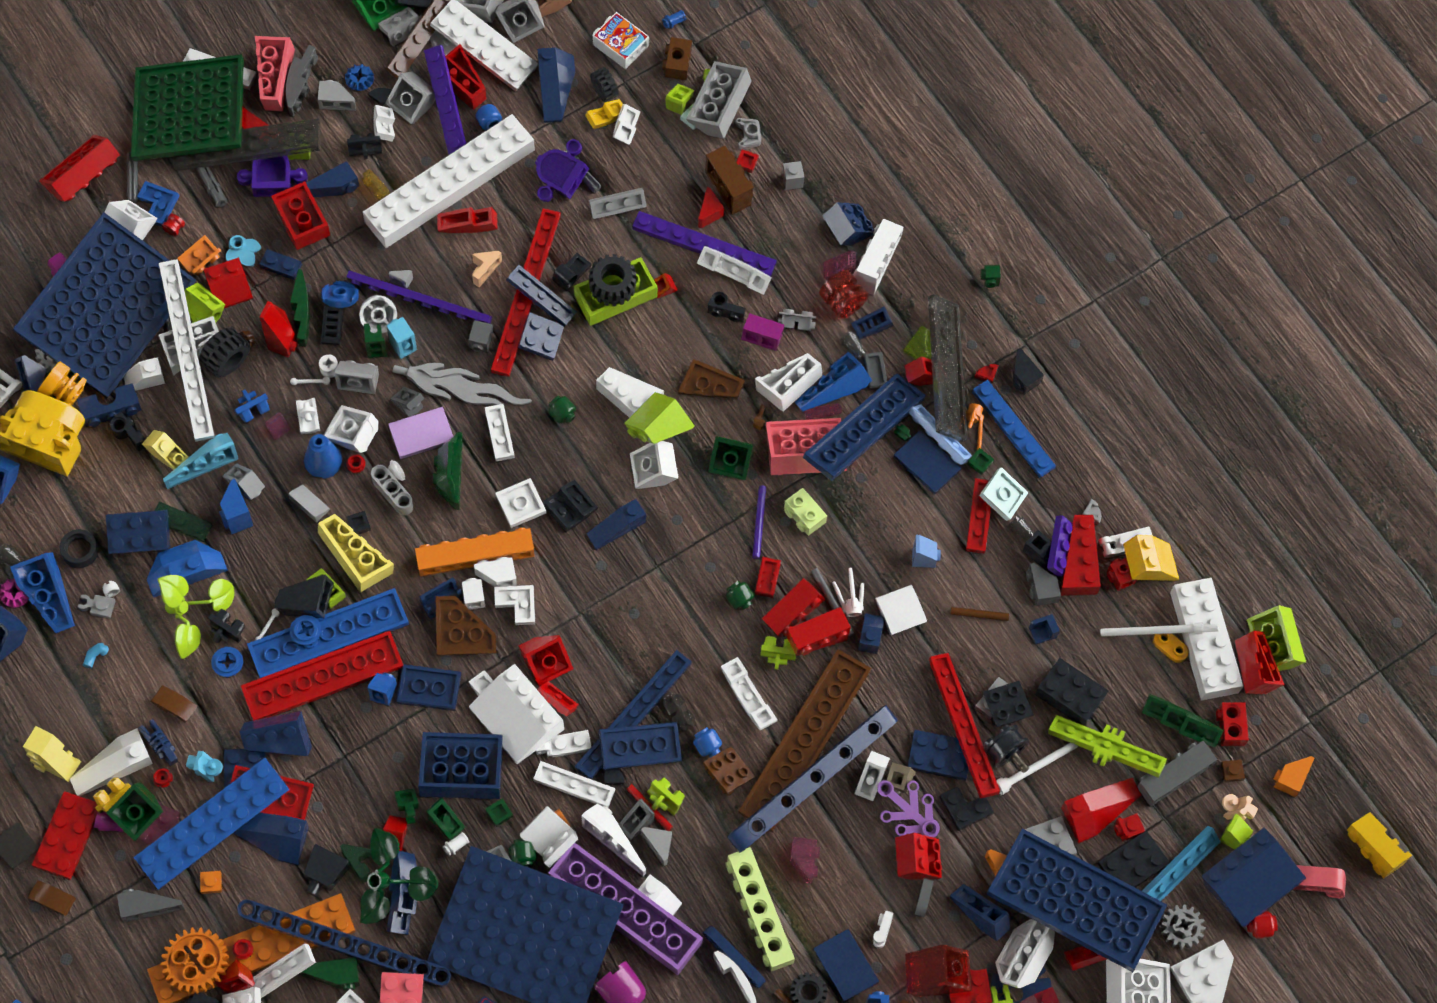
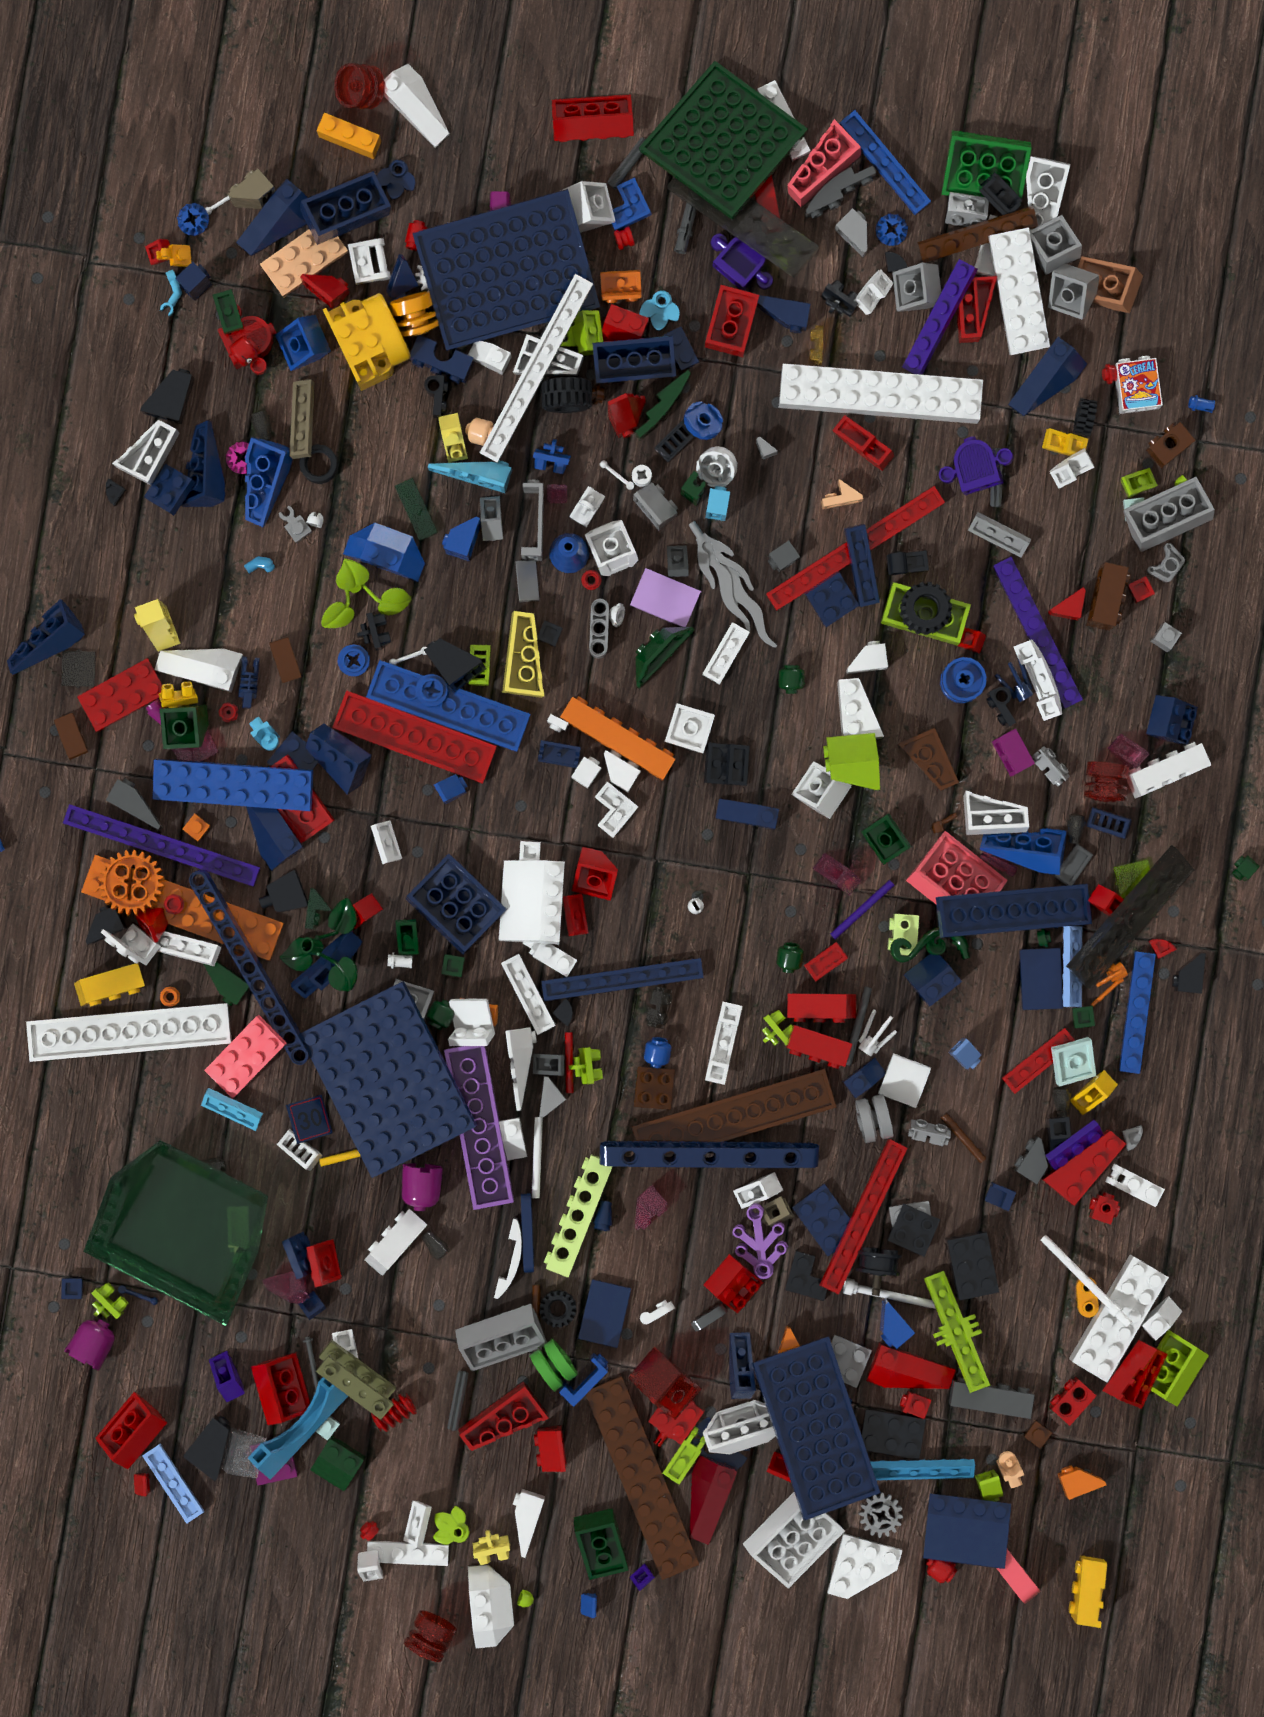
camera: 45 degrees right, 20 degrees up
(16, 343) = (413, 227): none -> red brick
(38, 525) = (302, 419): none -> dark tan plate
(138, 531) = (373, 492): dark blue brick -> none
(181, 430) = (478, 430): none -> light nougat head
(192, 917) = (162, 845): none -> dark purple plate
(252, 291) = (634, 359): none -> dark blue slope
(296, 474) = (535, 553): none -> light grey panel
(320, 39) = (885, 163): none -> blue plate
(368, 767) = (386, 842): none -> white plate
(407, 801) = (391, 895): dark green plate -> none
(411, 296) = (761, 473): dark purple plate -> none
(421, 578) = (557, 724): none -> white plate
(429, 687) = (488, 817): dark blue tile -> none
(461, 630) = (550, 794): reddish brown plate -> none
(488, 116) = (963, 363): blue head -> none
(594, 47) = (1109, 373): none -> red plate
(606, 352) = (870, 659): none -> white slope
(638, 623) = (691, 908): none -> white hinge
(639, 745) = (603, 1009): dark blue tile -> none
(683, 312) = (973, 674): none -> blue wheel
(689, 896) = (537, 1157): none -> white bar
(719, 511) = (837, 874): none -> clear pink slope
(729, 287) = (1022, 689): none -> dark blue plant
(779, 895) = (603, 1217): none -> dark blue cone
(834, 500) = (928, 940): none -> dark green plant
(853, 524) = (932, 978): none -> dark blue slope
(905, 649) = (876, 1118): none -> light grey wheel
(960, 626) = (938, 1133): none -> light grey hinge
(1037, 504) = (1094, 1092): none -> yellow slope
(1058, 780) = (893, 1326): none -> blue slope
(1150, 559) = (1136, 1219): yellow slope -> none
(1182, 720) = (1036, 1363): dark green slope -> none
(1235, 615) = (1161, 1318): none -> white slope

